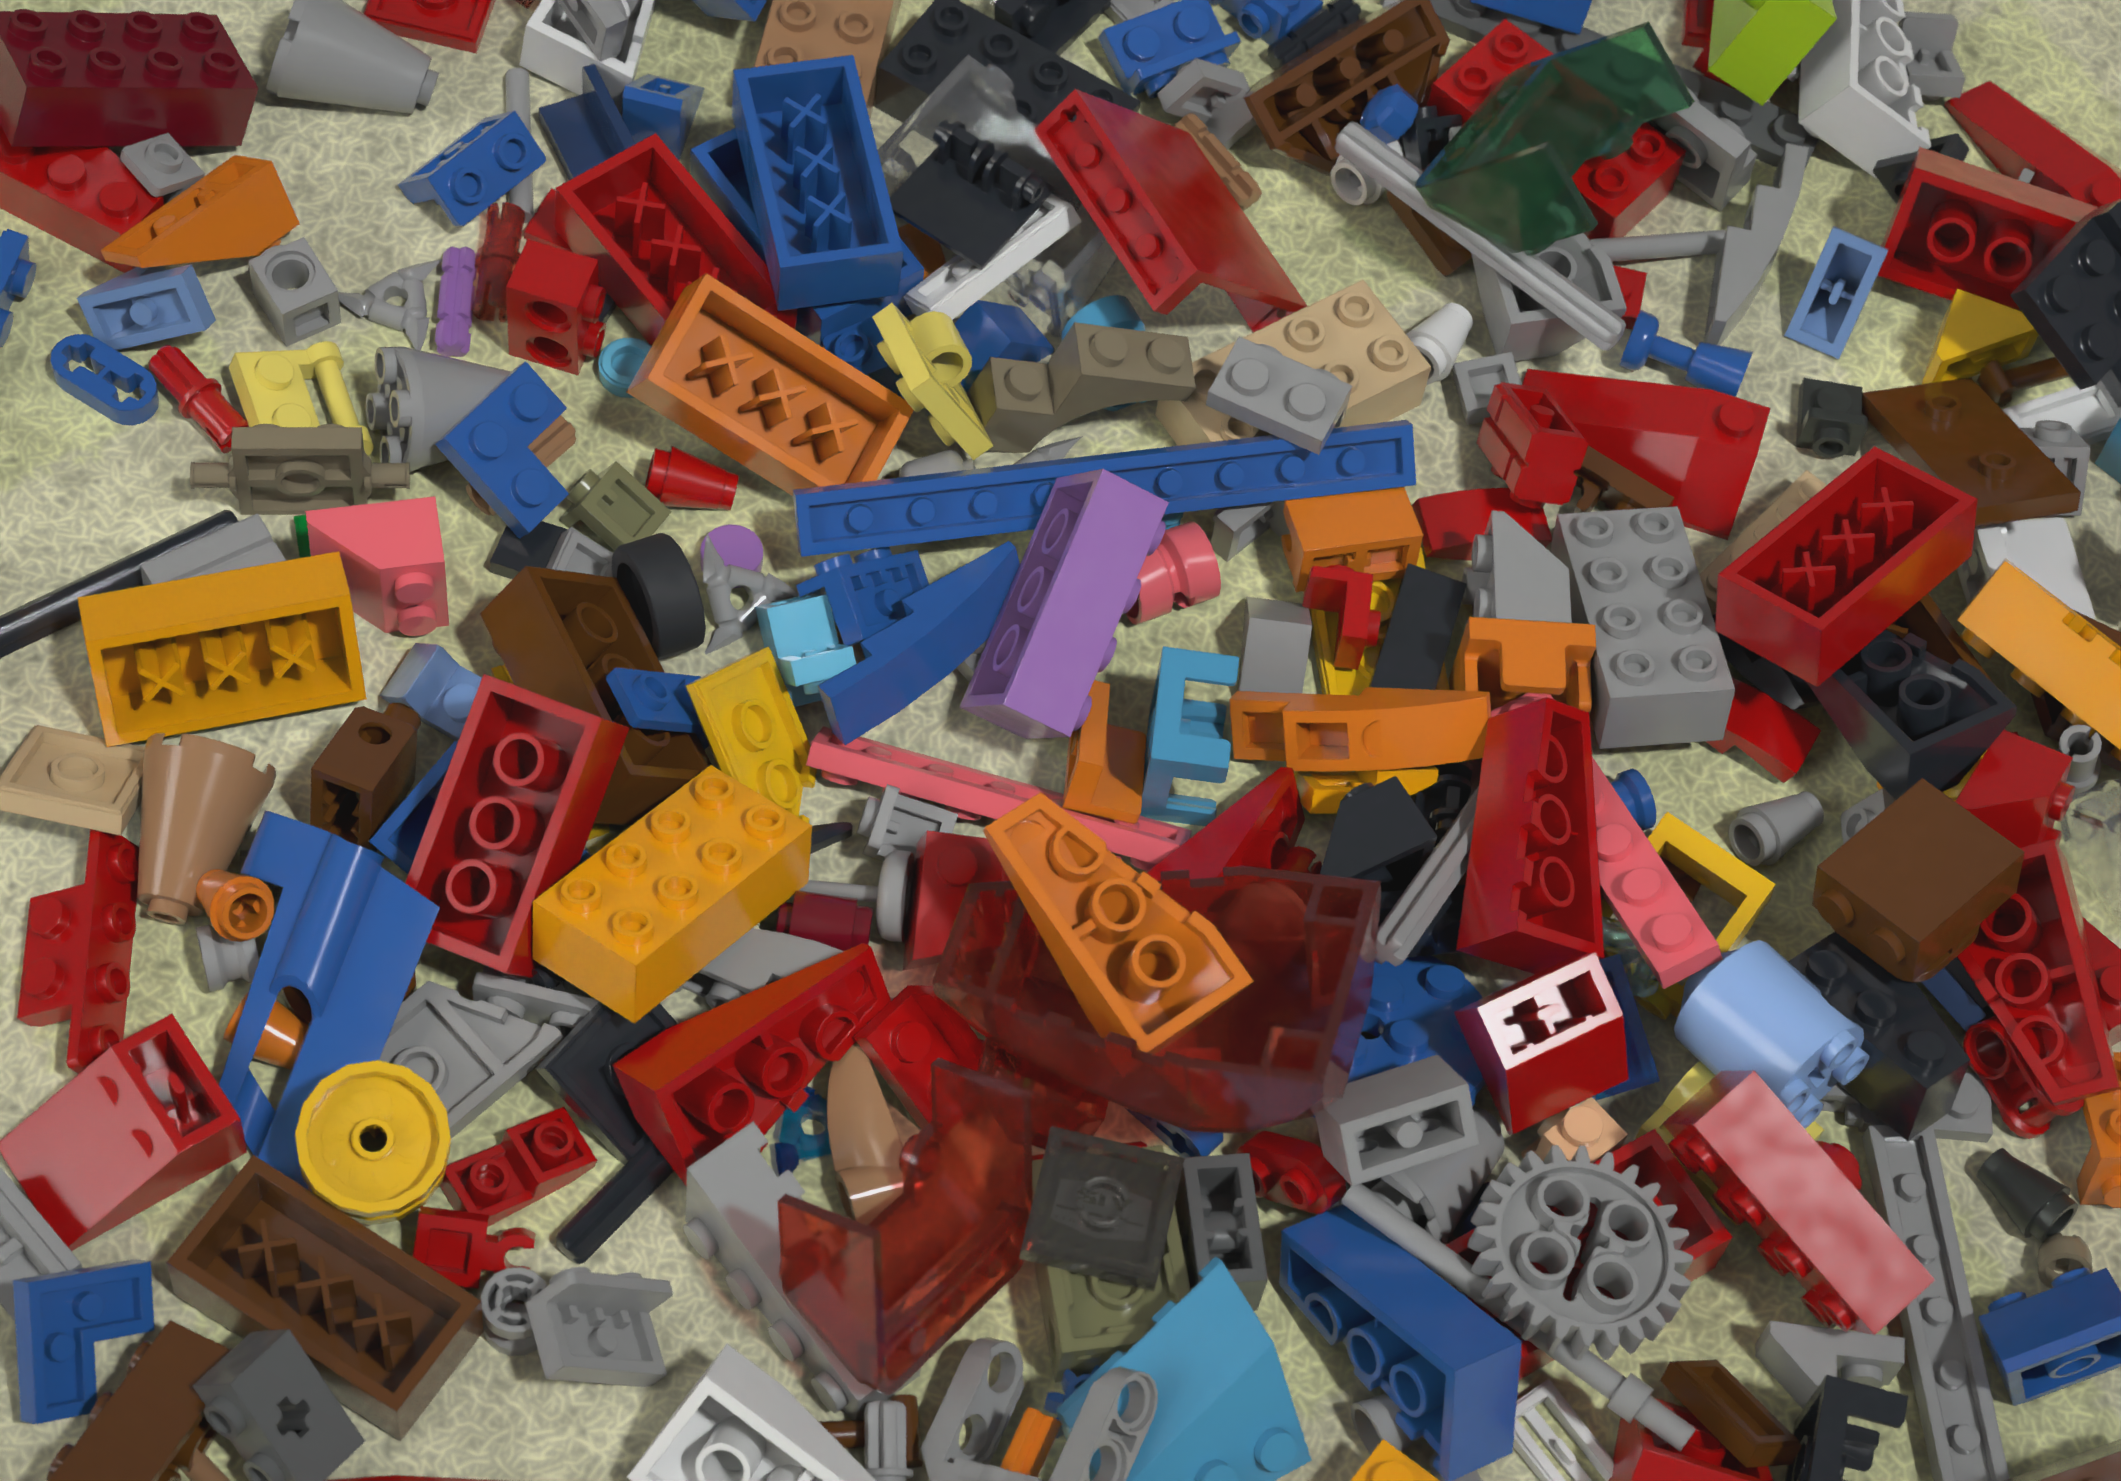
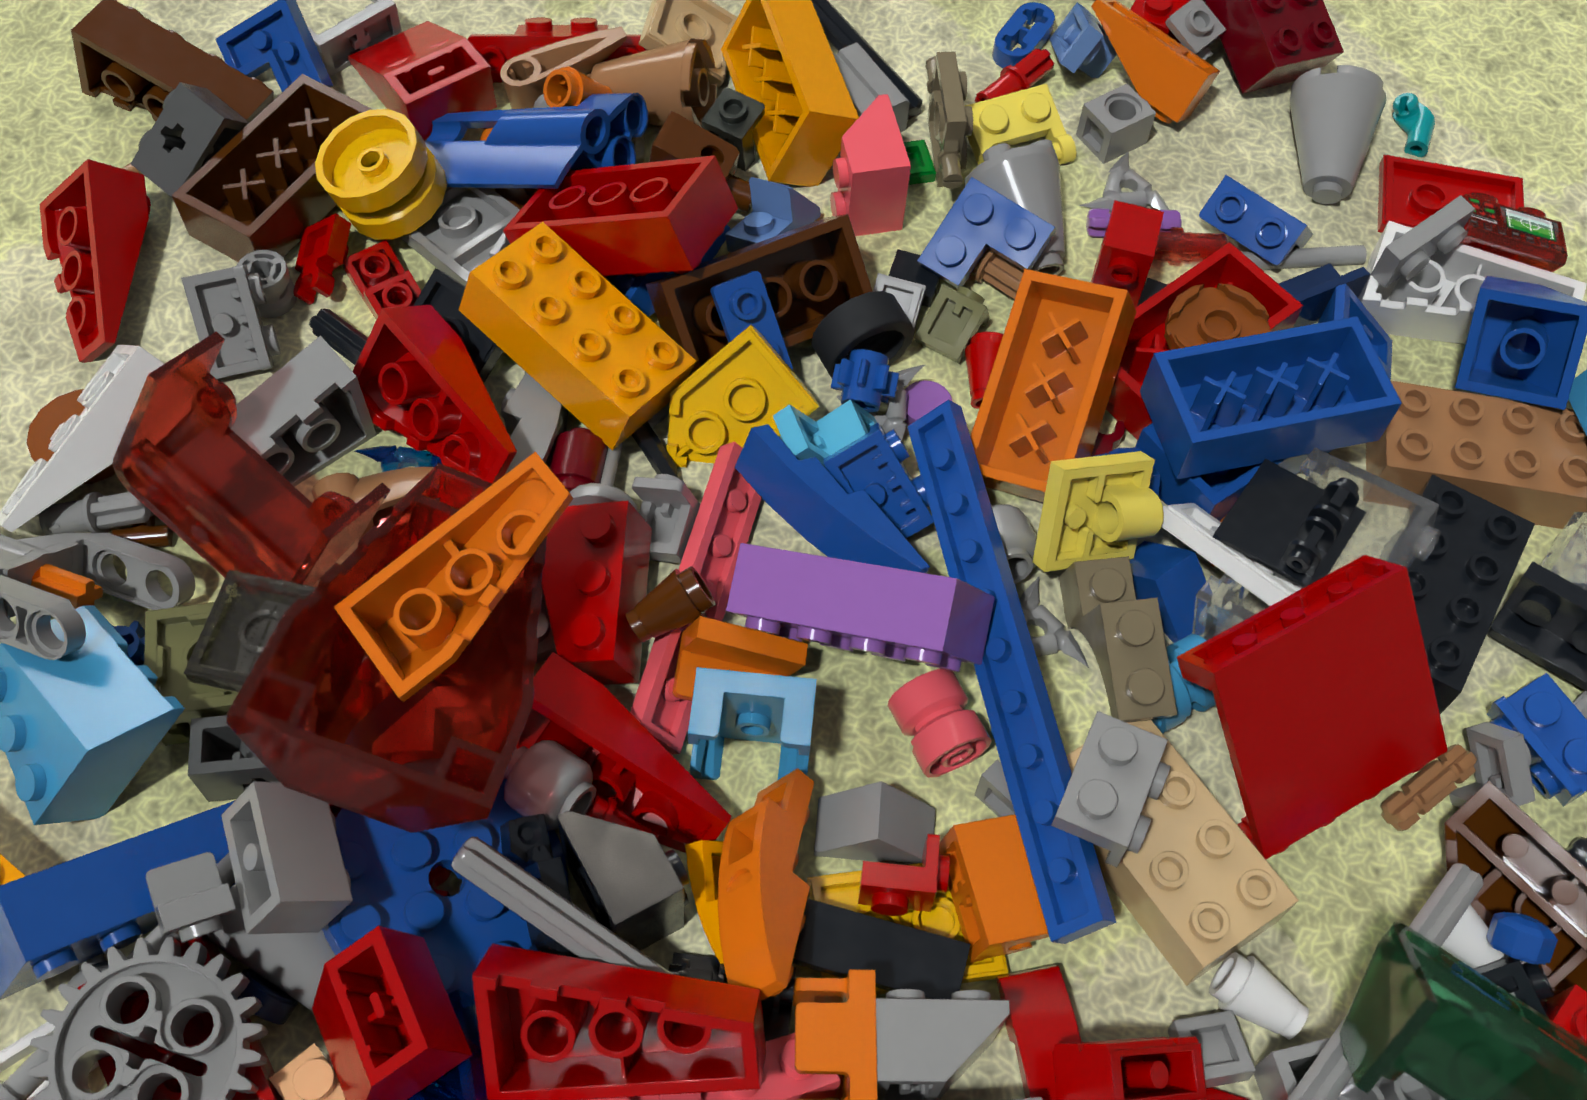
camera: 95 degrees right, 0 degrees up
(145, 941) = (526, 73): none -> medium nougat piece
(285, 723) = (733, 120): none -> pearl dark grey bracket
(693, 220) = (1213, 316): none -> dark orange tile
(734, 595) = (865, 379): none -> blue gear
(1052, 778) = (671, 605): none -> reddish brown cone
(1446, 1209) = (189, 897): none -> light grey bracket

